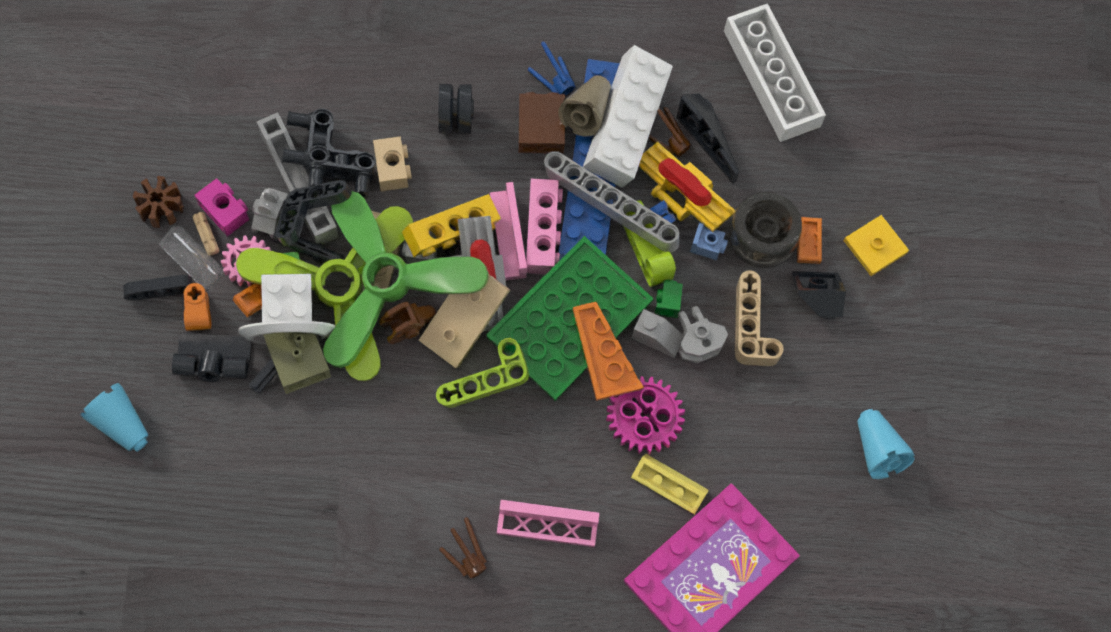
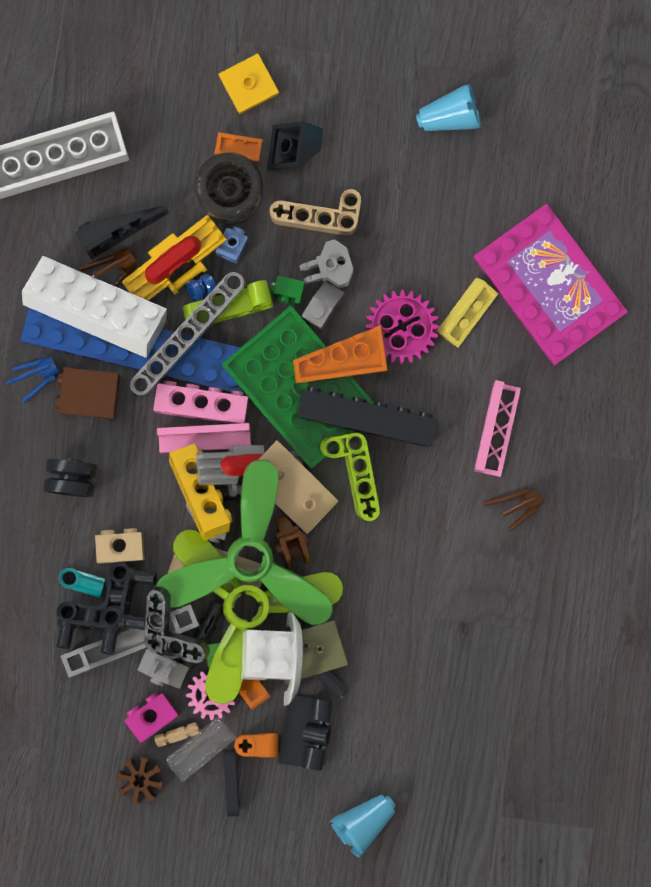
camera: 75 degrees left, 15 degrees up
(354, 133) = (84, 582): none -> teal piece
(543, 383) = (366, 418): none -> black brick
(586, 107) = (81, 345): dark tan cone -> none

